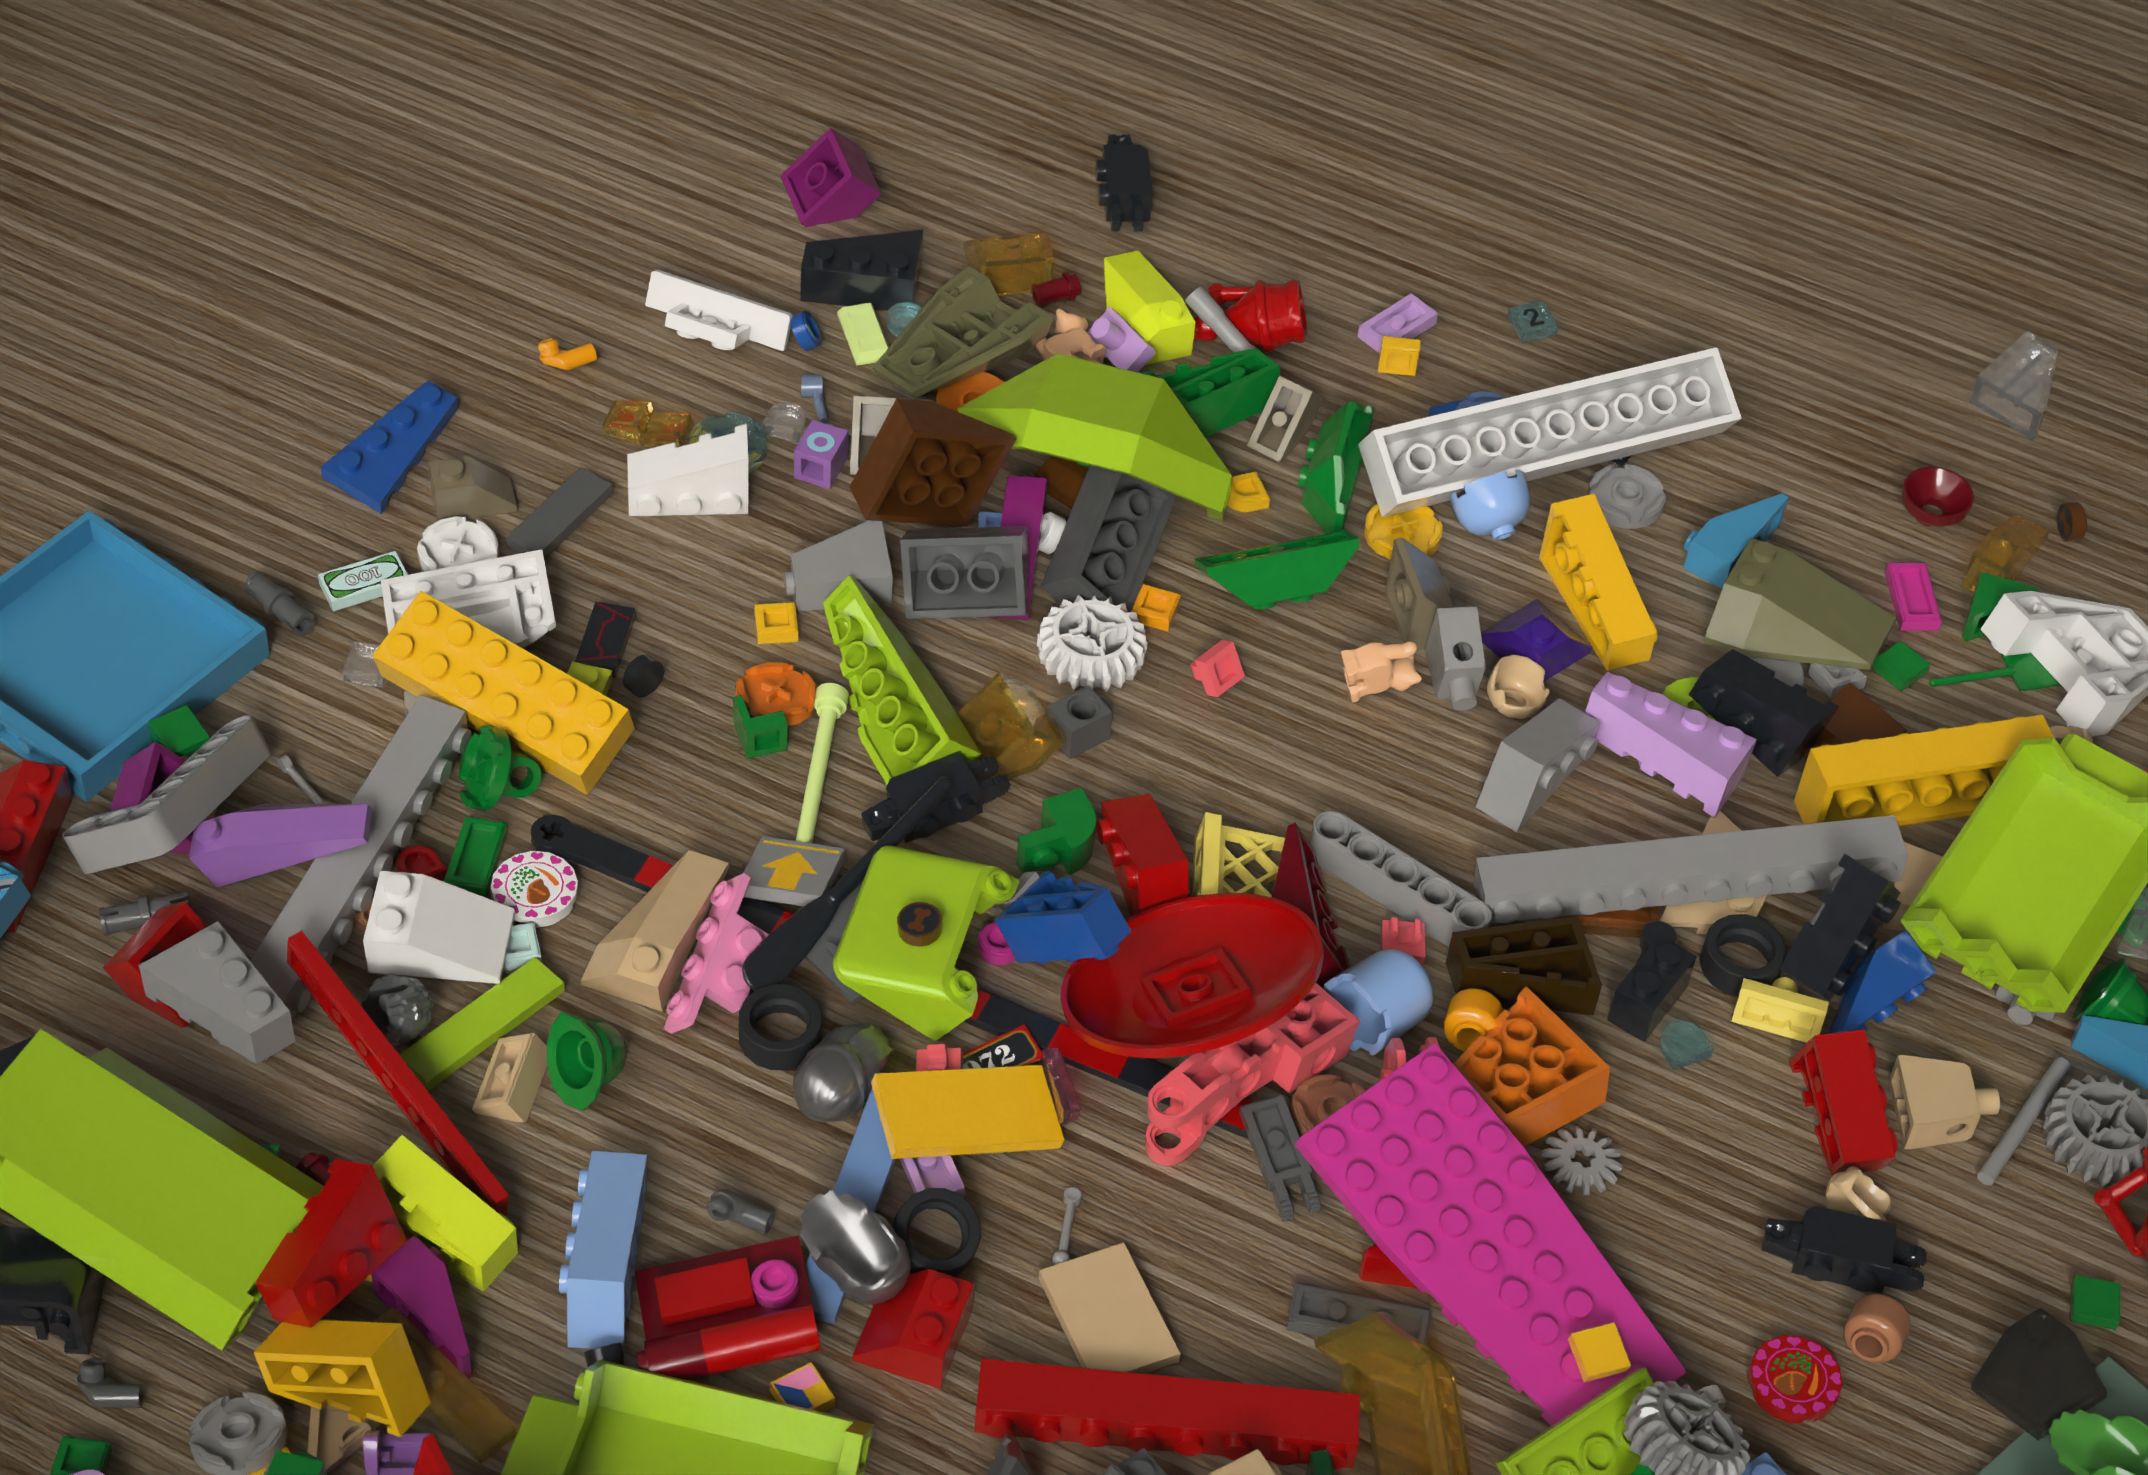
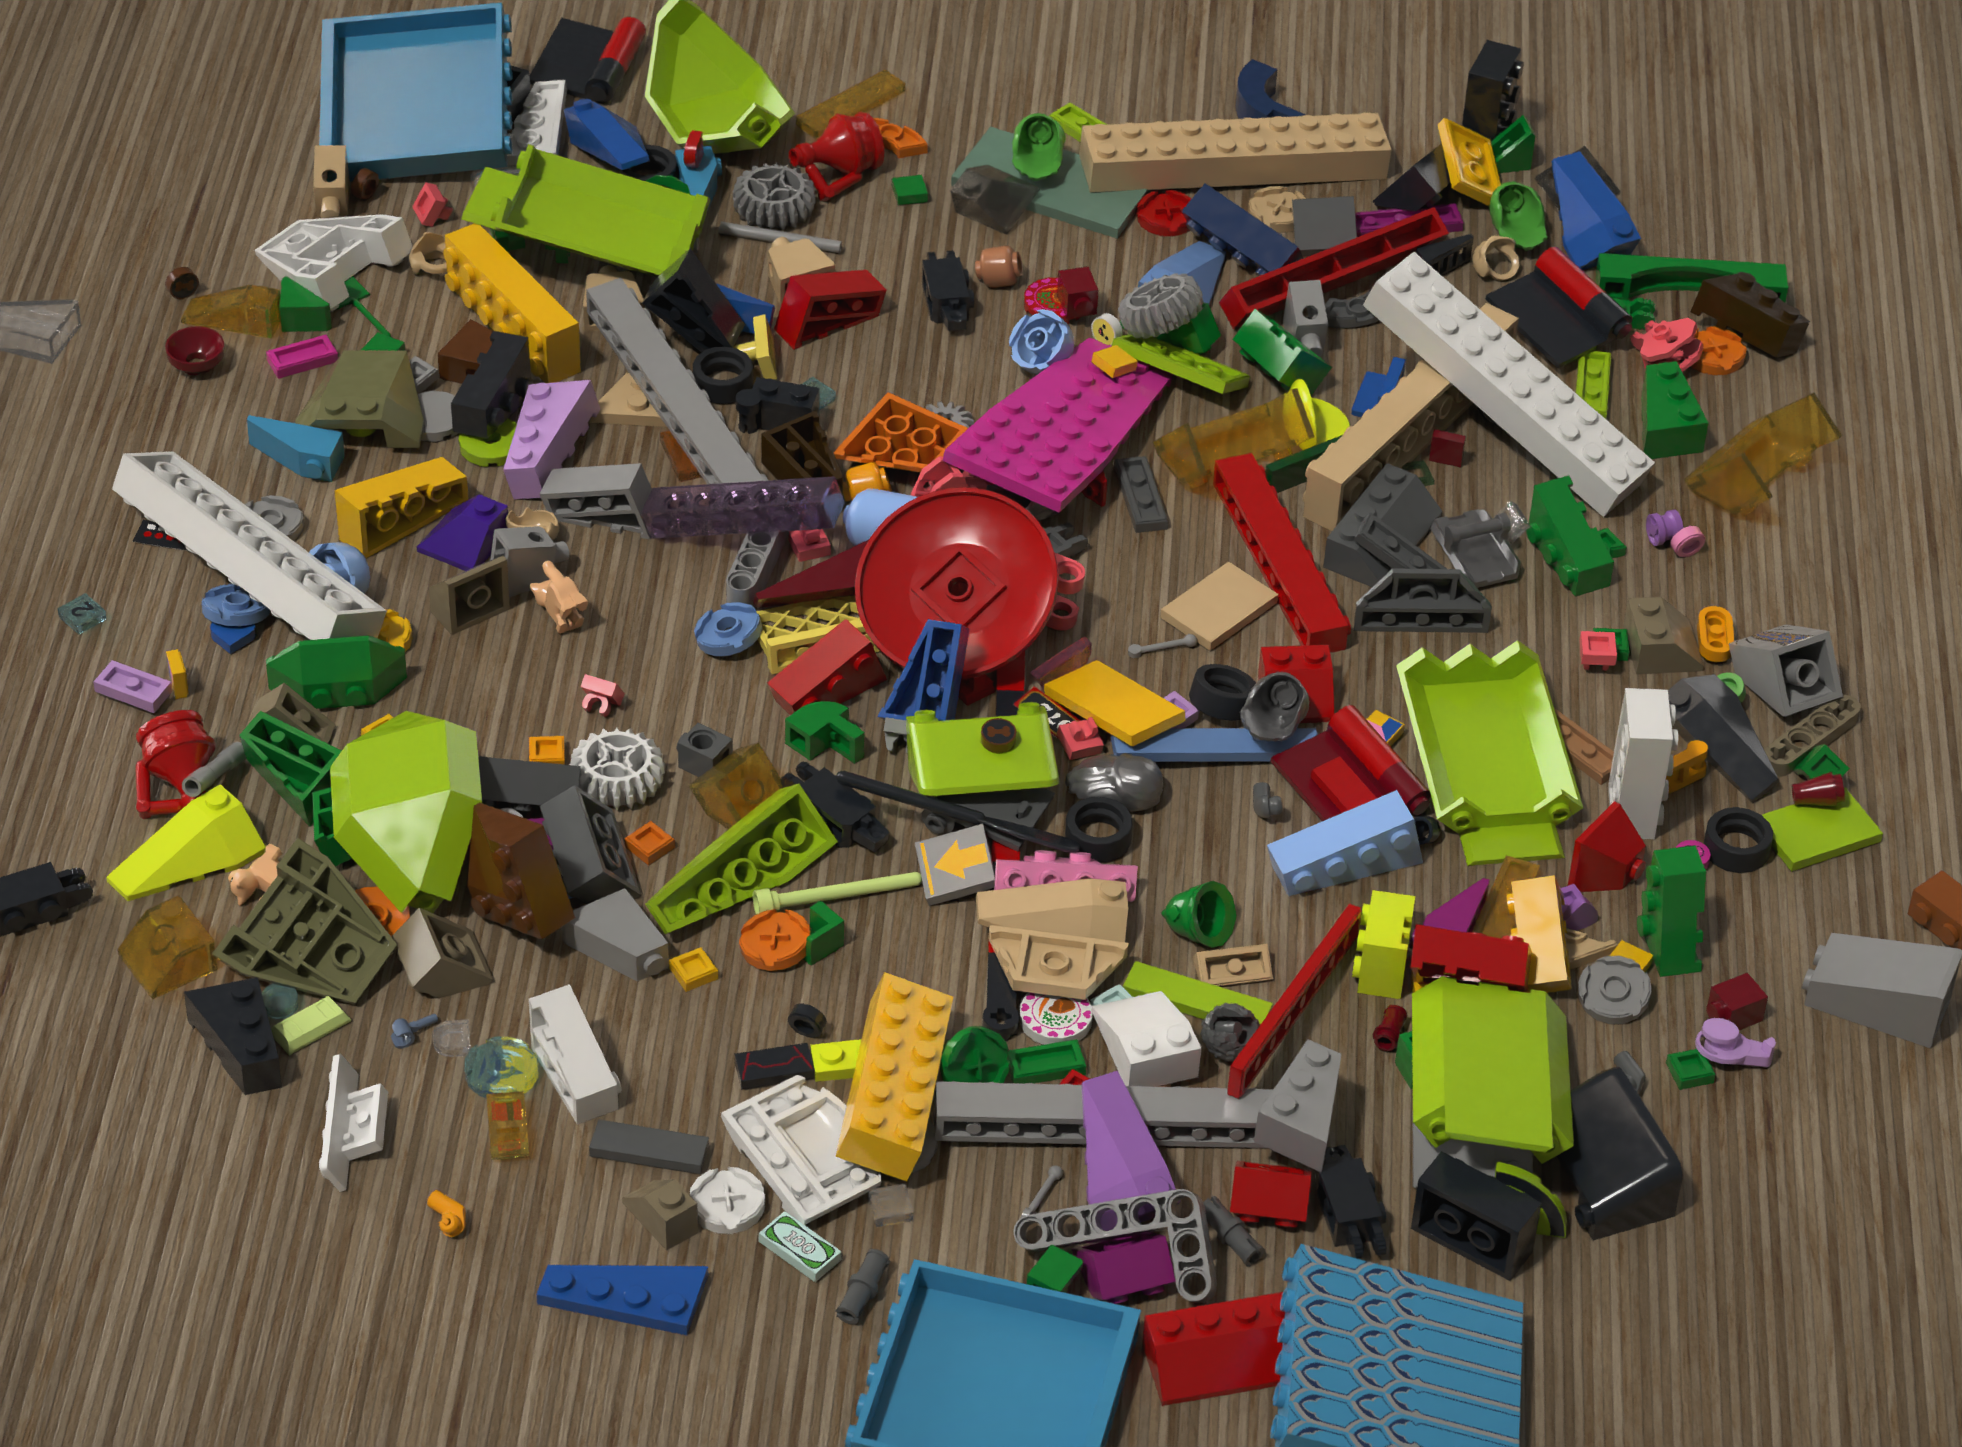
camera: 110 degrees left, 5 degrees down
(108, 1018) = (1350, 1203): none -> black hinge
(591, 894) = (1054, 961): none -> tan wing
(775, 1284) = (1318, 751): dark pink tile -> none
(806, 330) = (345, 1047): blue tile -> none
(821, 454) = (488, 993): medium lavender brick -> none
(830, 181) = (122, 1102): magenta slope -> none
(976, 646) = (649, 843): none -> orange tile
(1056, 290) = (202, 913): dark red pin -> none
(1122, 342) = (251, 839): lavender tile -> none
(1255, 813) = (717, 641): none -> medium blue tile
(1282, 569) = (470, 679): green wedge -> none
(1440, 852) = (743, 507): none -> clear purple brick
(1675, 1300) = (1041, 341): none -> light blue cylinder
(1774, 1381) = (1077, 292): none -> dark red brick
(1856, 1191) = (898, 287): tan piece -> none

